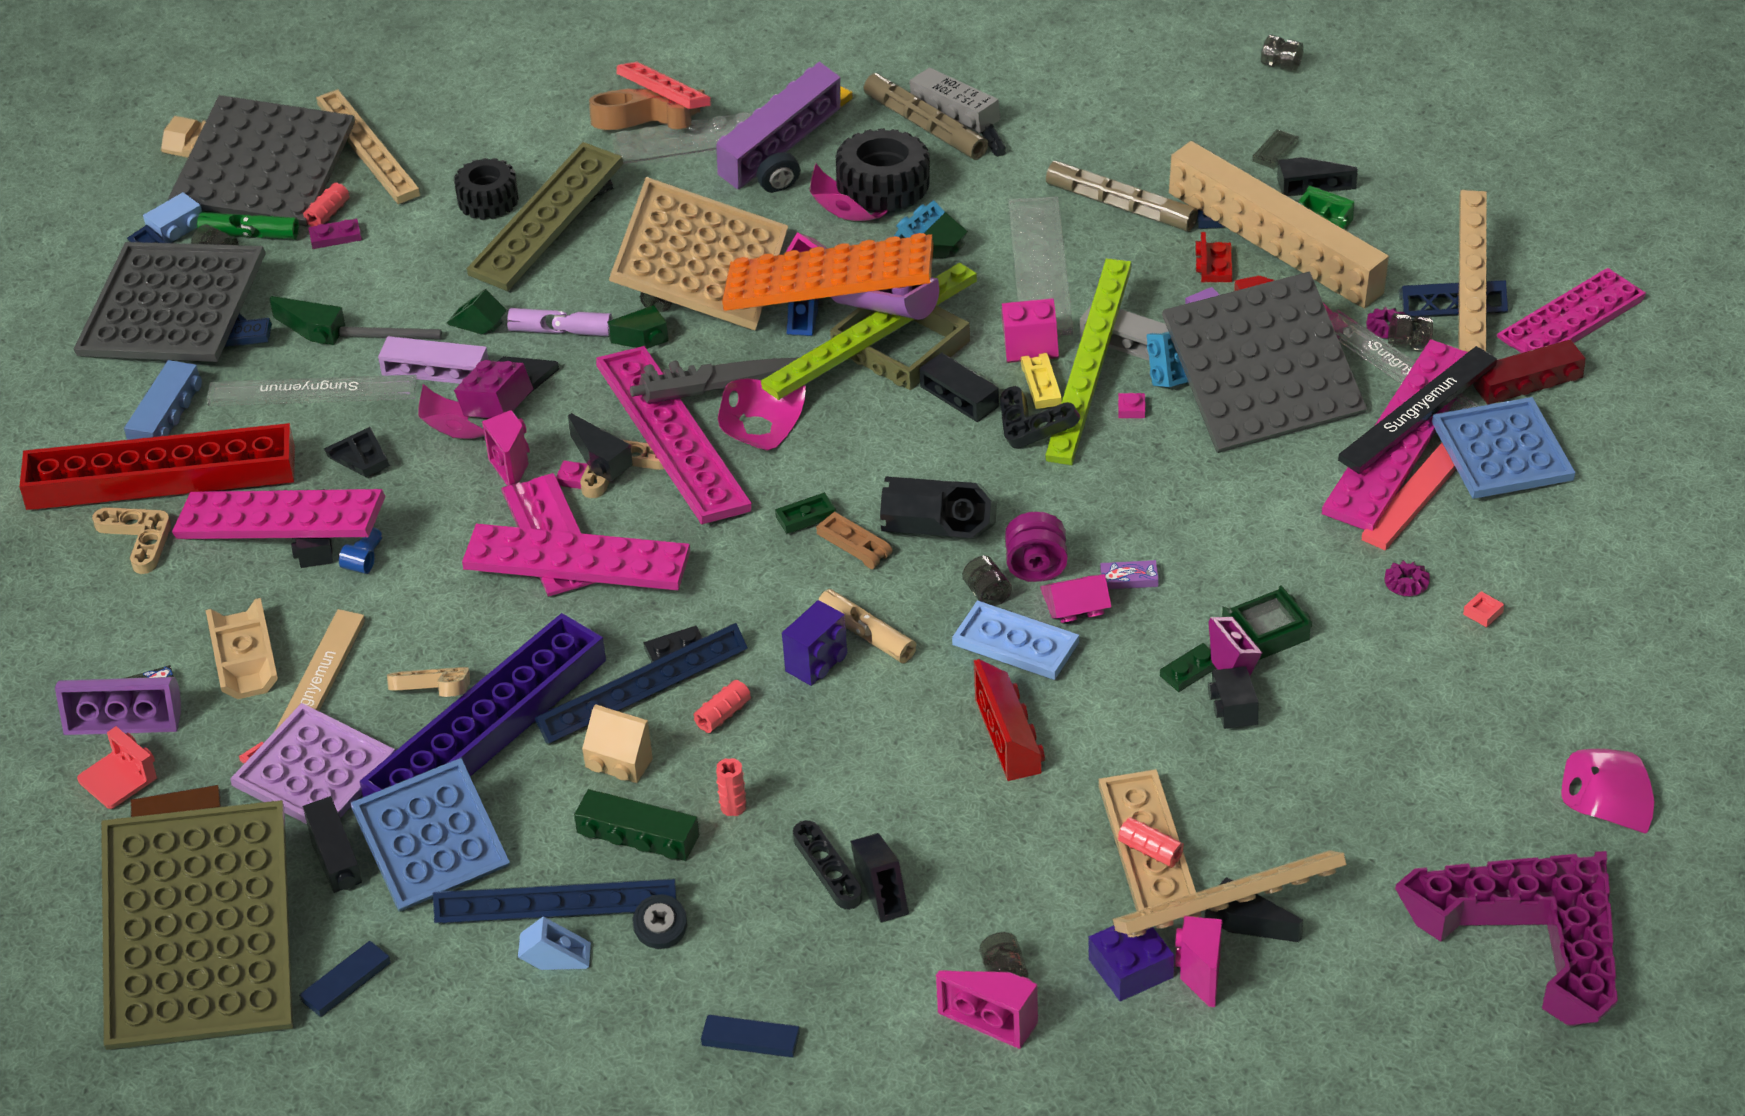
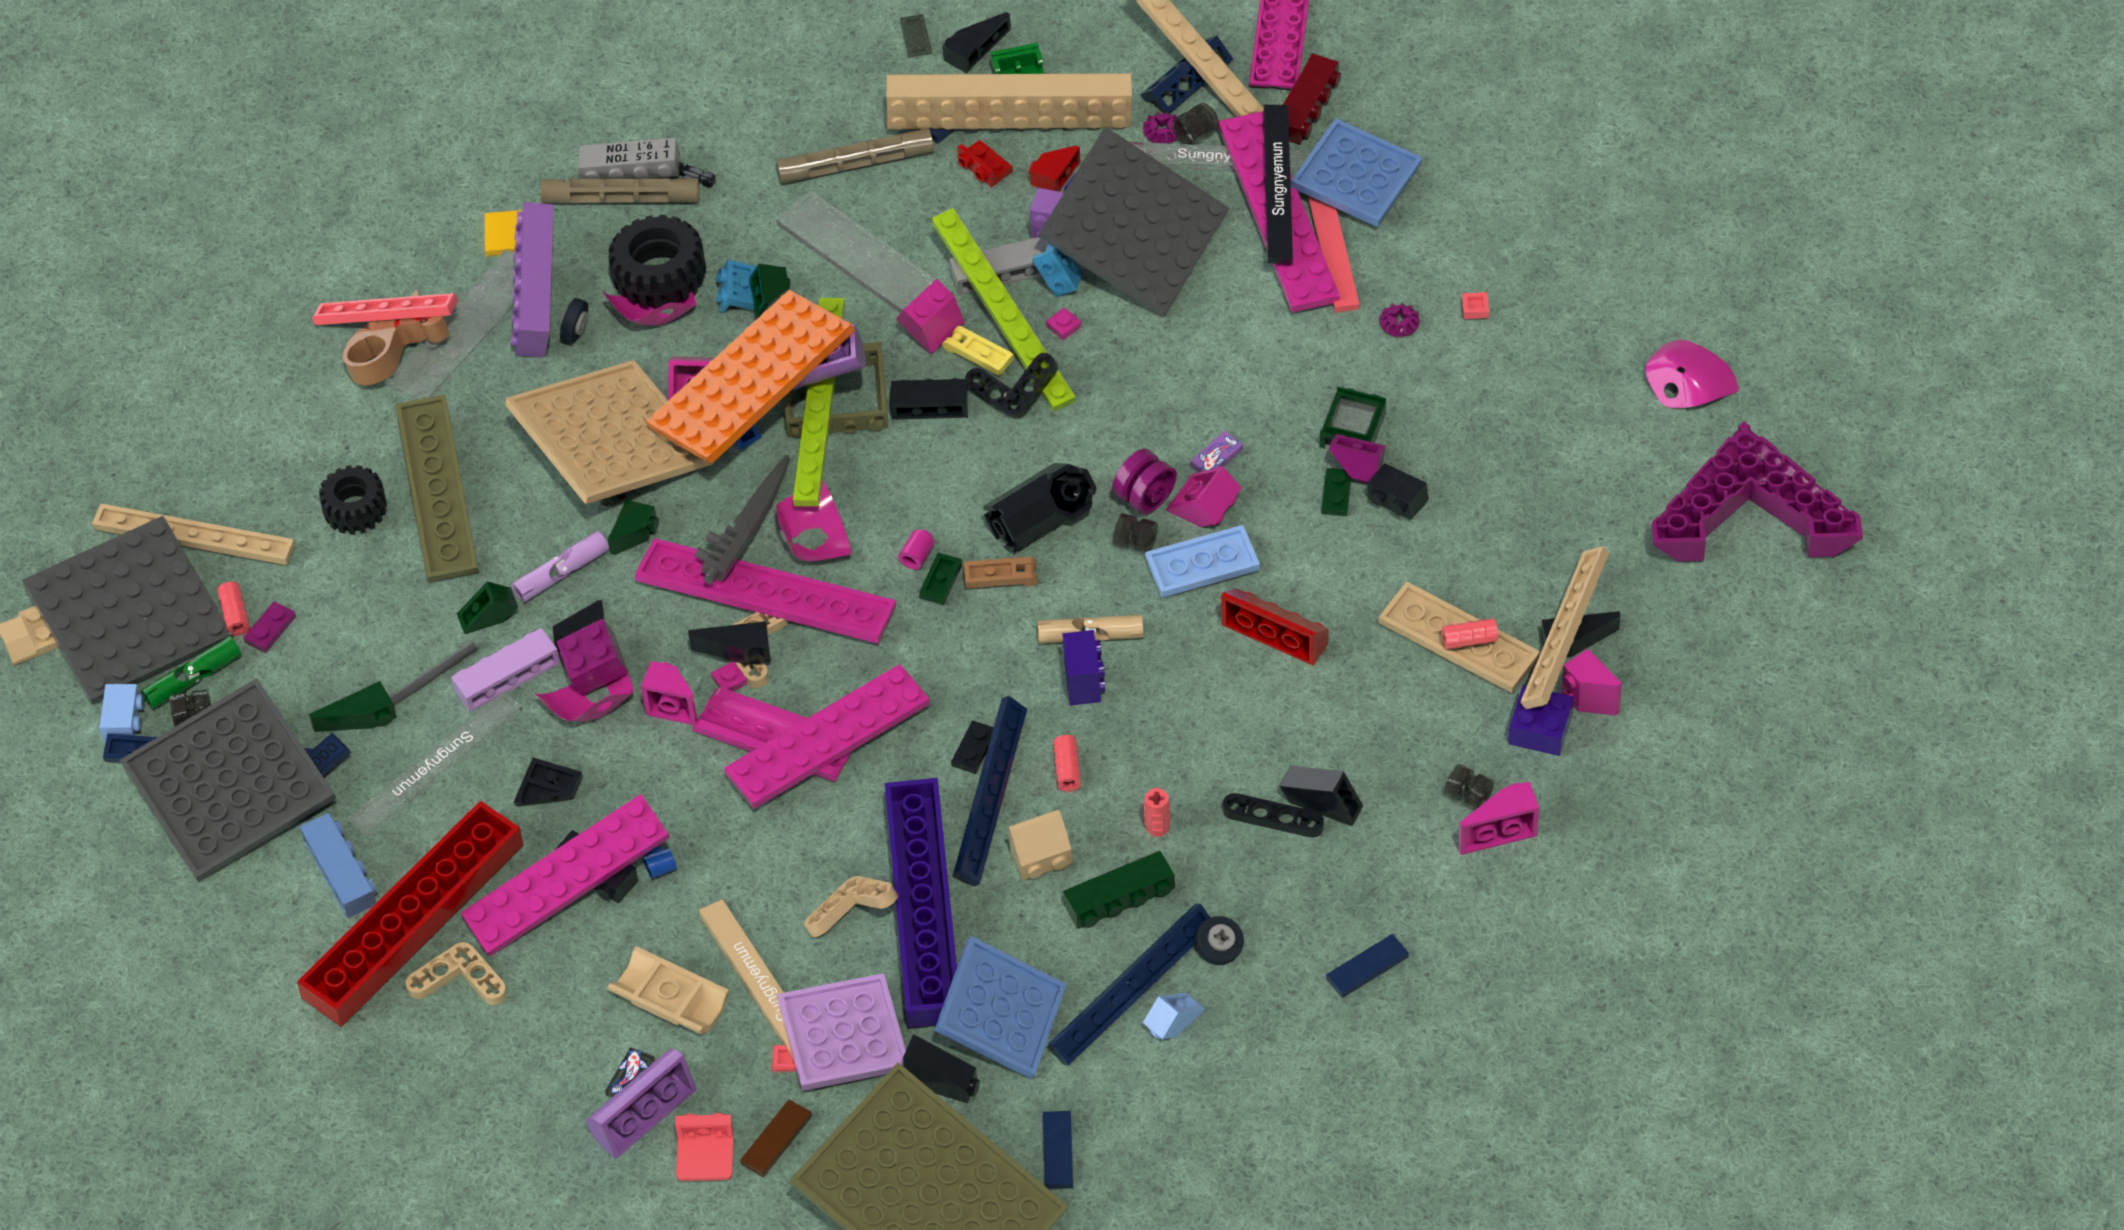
camera: 45 degrees left, 10 degrees up
(814, 480) = (916, 549): none -> dark pink brick

